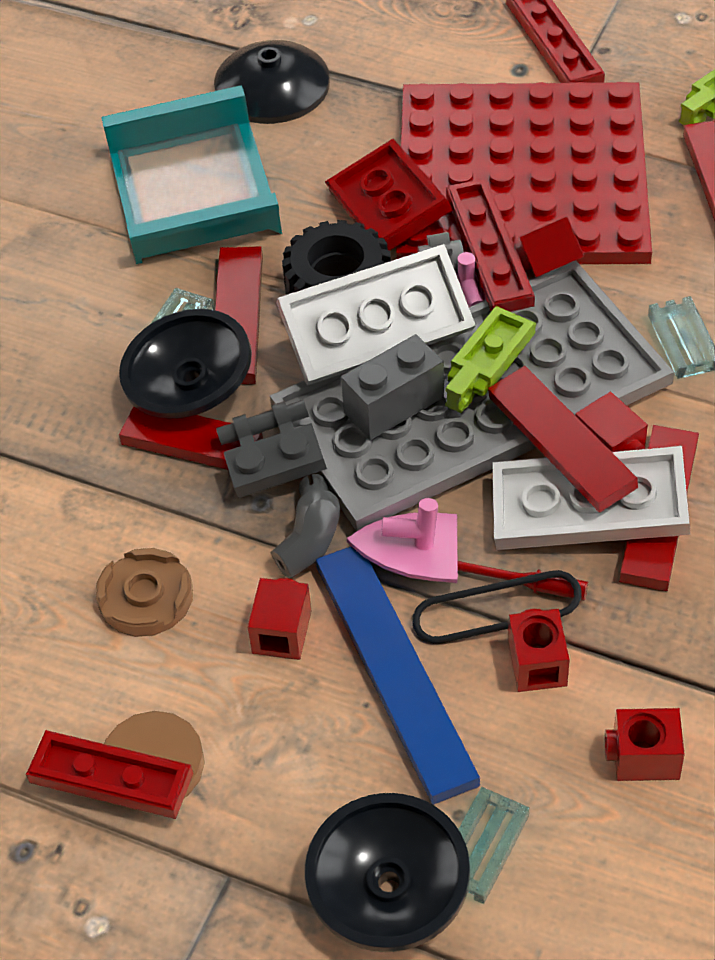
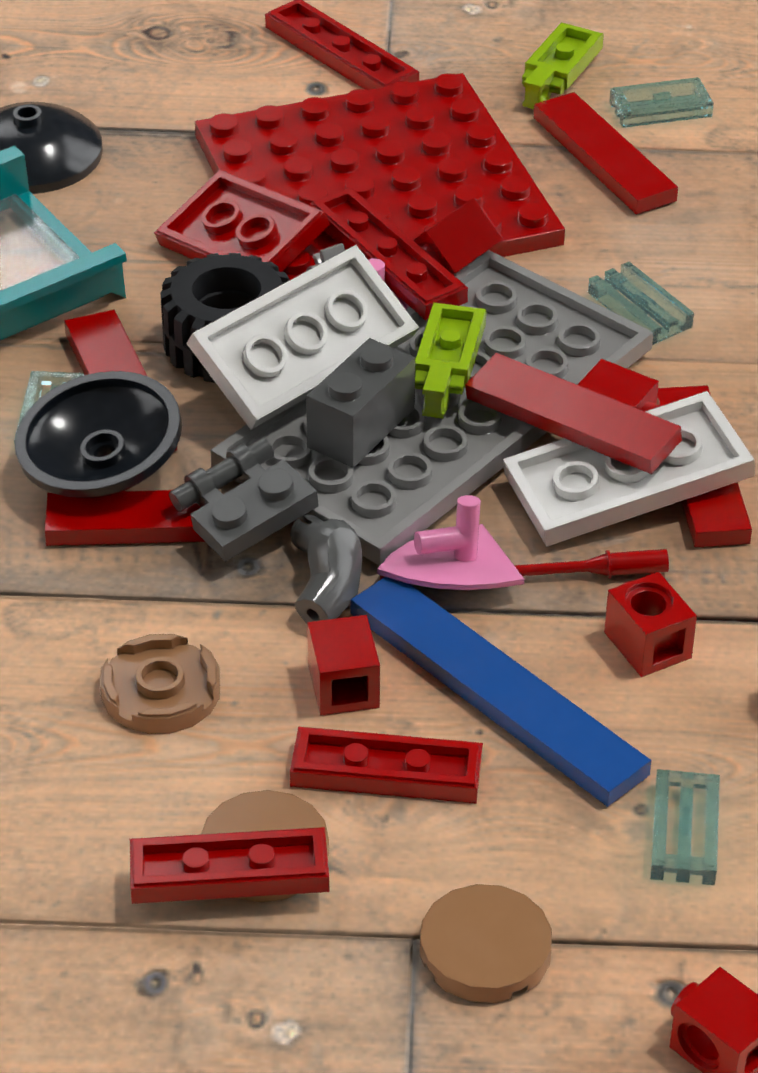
camera: 25 degrees left, 10 degrees down
(269, 902) = (485, 942): none -> medium nougat tile
(278, 715) = (386, 764): none -> red tile
(379, 842) = (613, 843): black dish -> none
(488, 588) = (514, 649): black piece -> none

